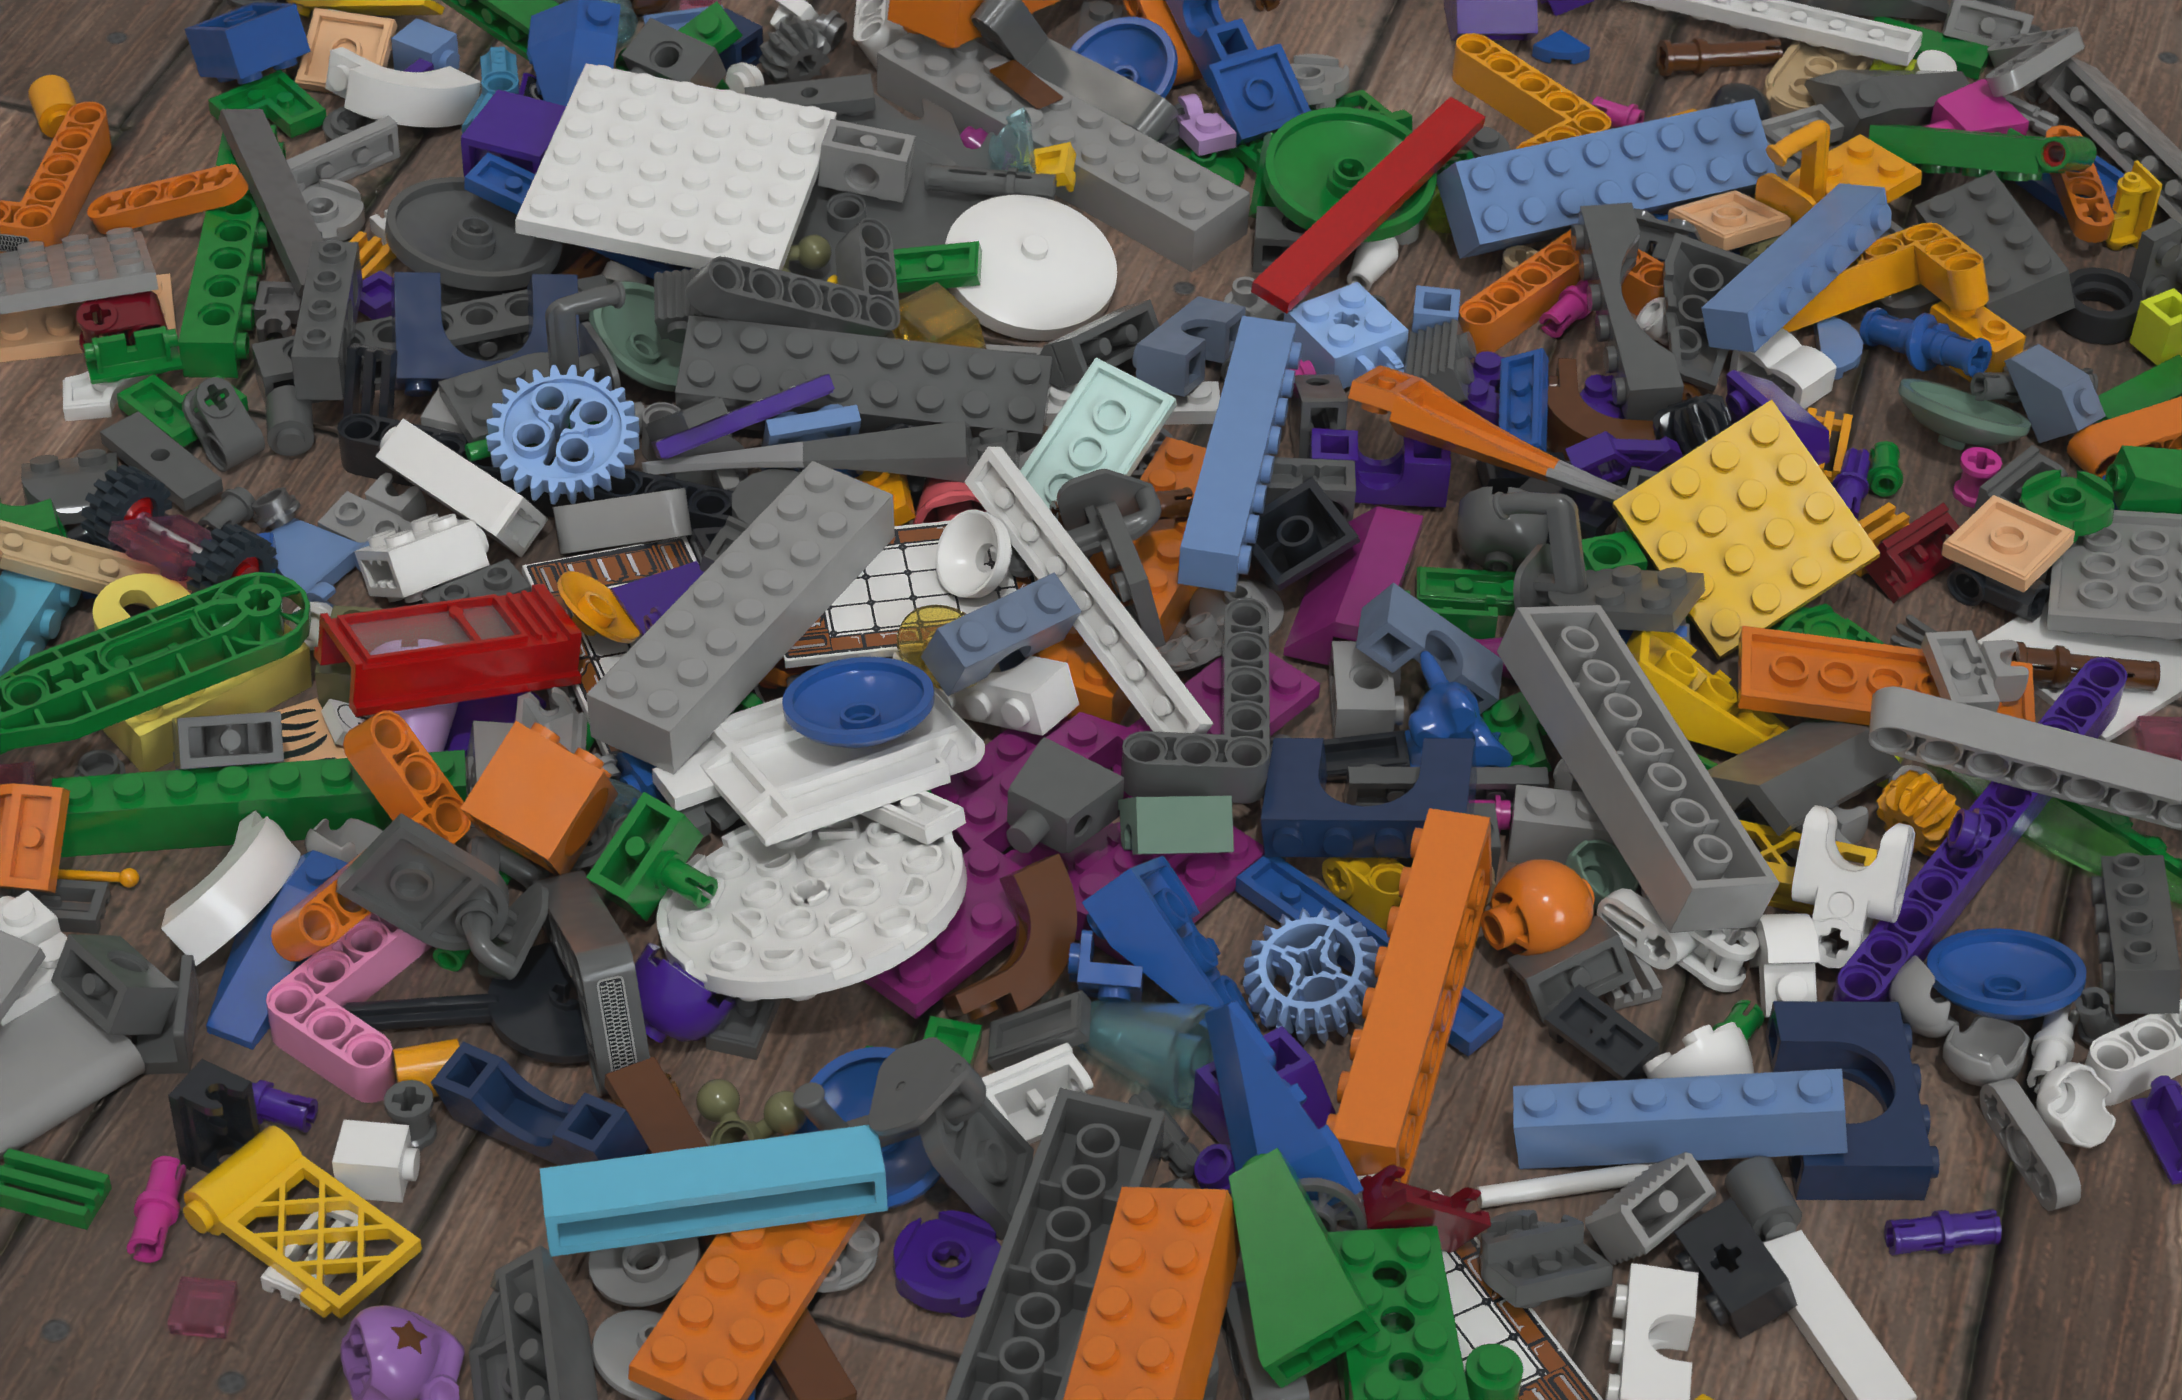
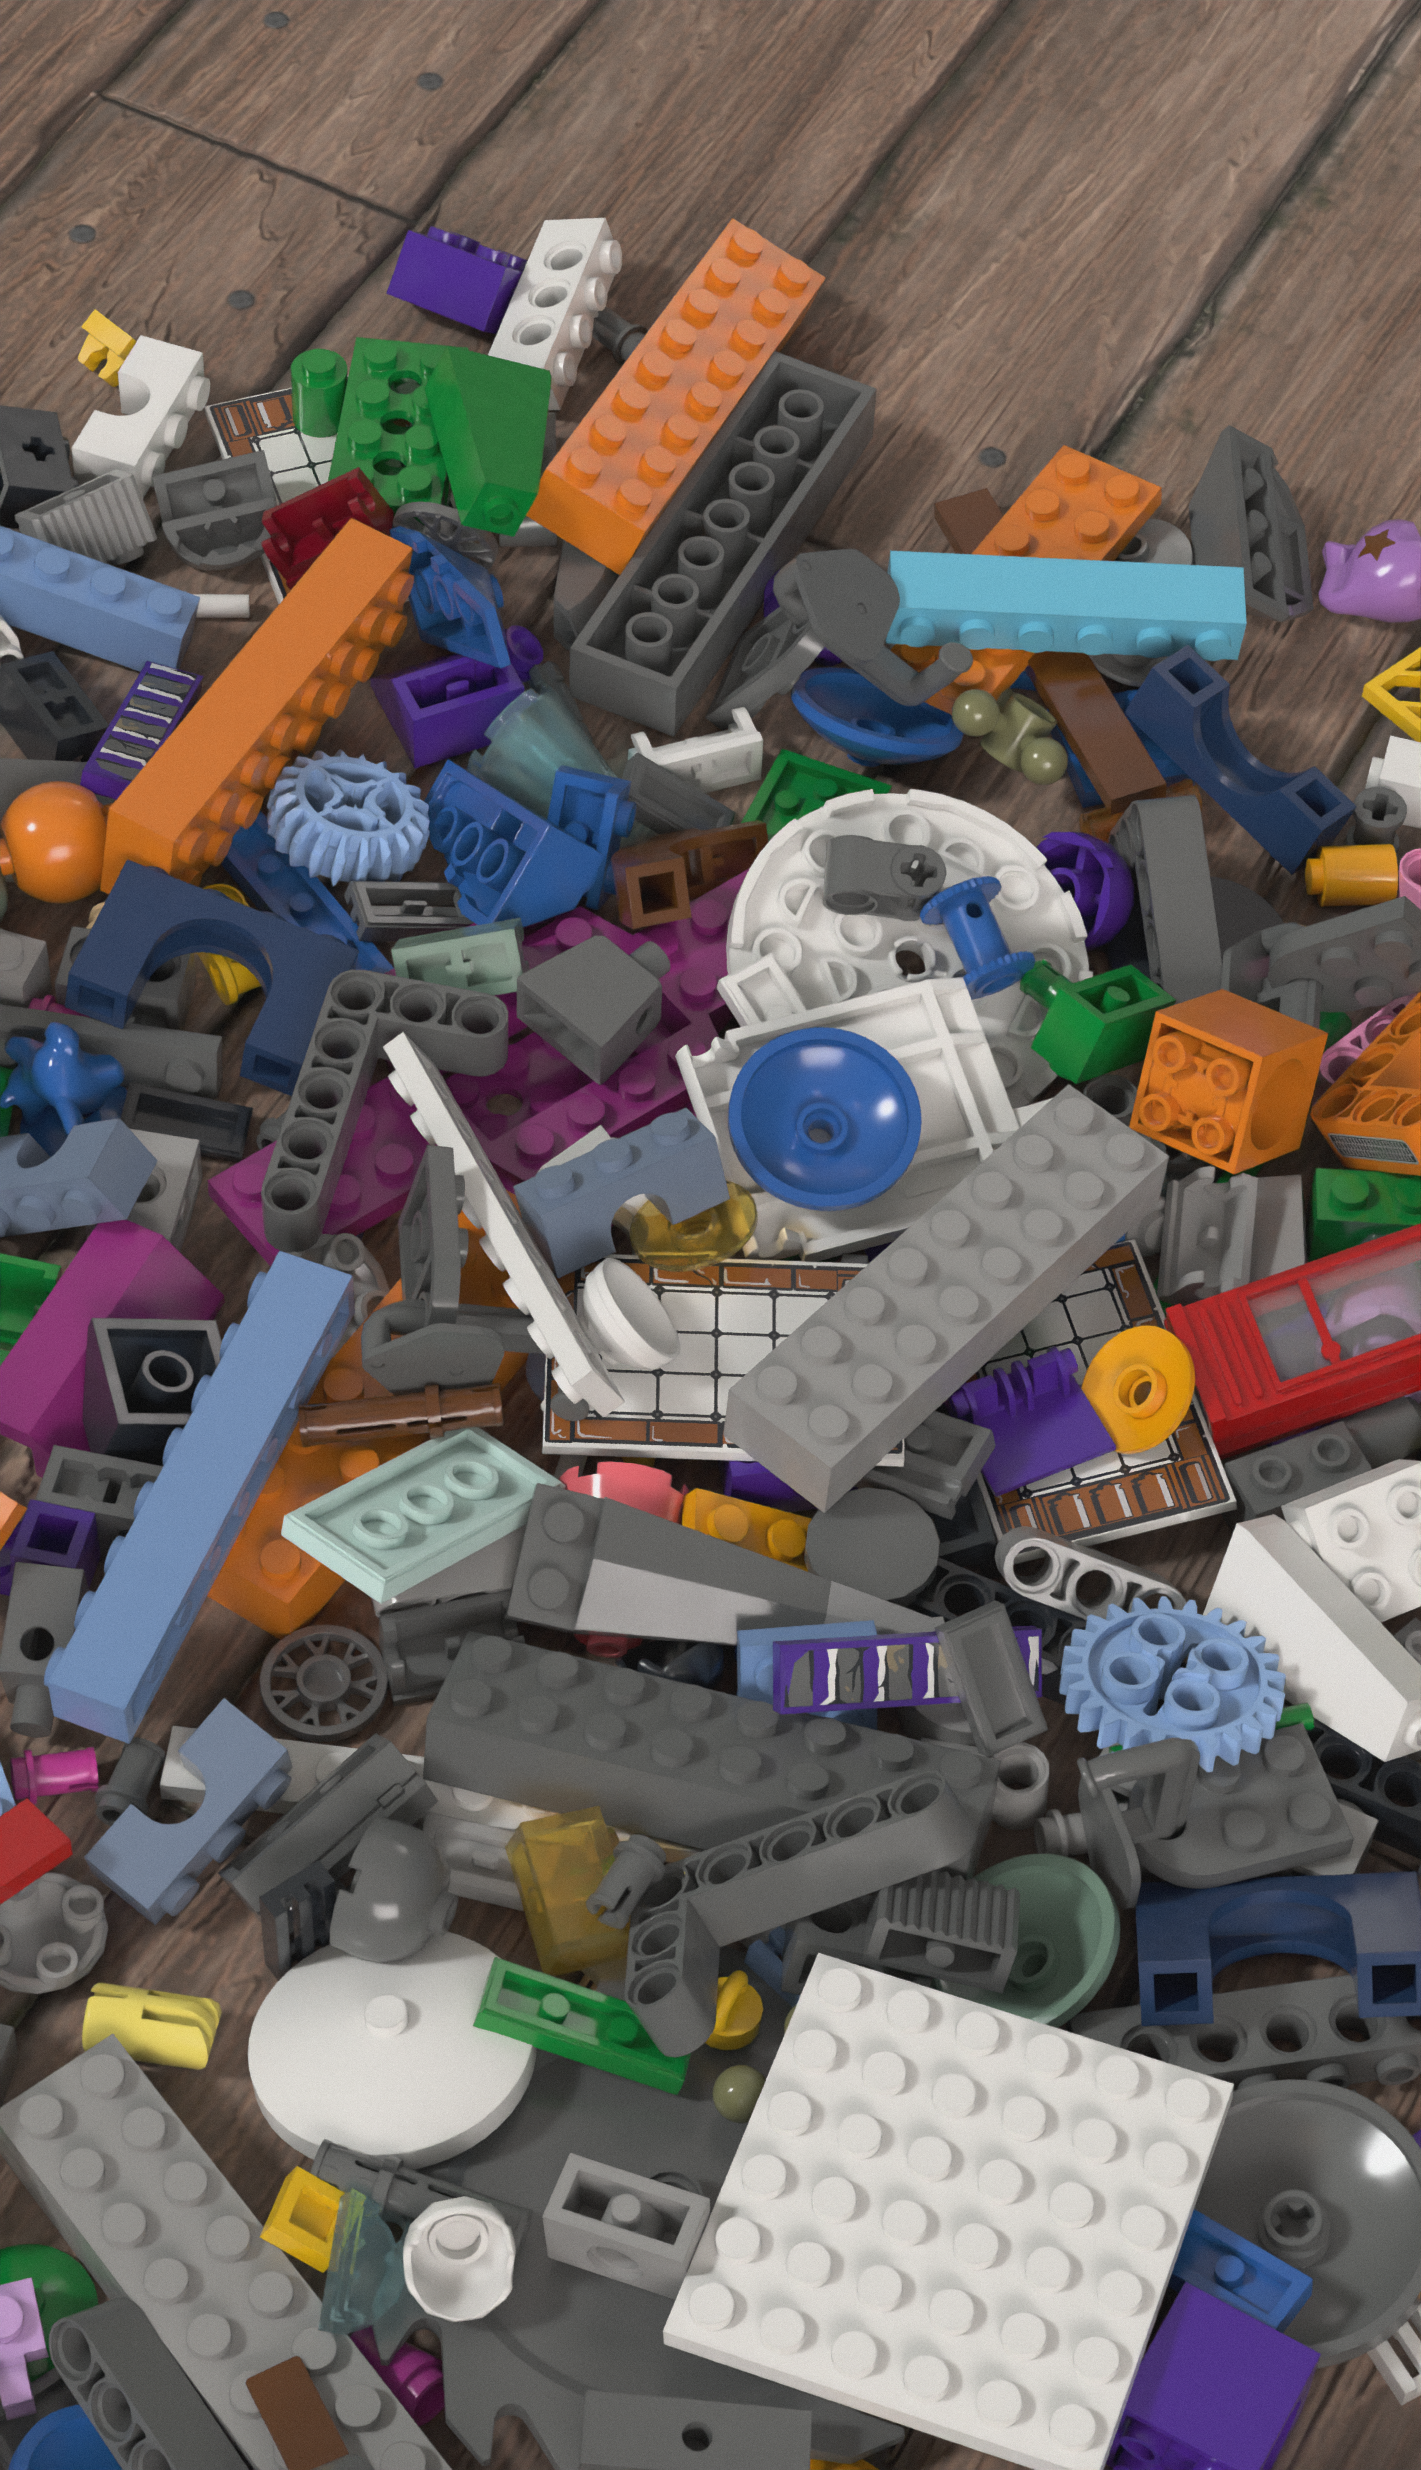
camera: 170 degrees left, 10 degrees up
(744, 867) = (977, 936): none -> blue hose
(842, 890) = (878, 877): none -> dark grey piece
(900, 312) = (635, 1867): none -> dark grey pin
(961, 146) = (459, 2259): none -> white hair
(1046, 297) = (394, 1895): none -> dark grey cylinder
(1103, 287) = (309, 1913): none -> black tile
(1177, 270) = (152, 2024): none -> light yellow arm
(1241, 930) = (411, 918): none -> dark grey tile
(1513, 1008) = (140, 727): none -> tile

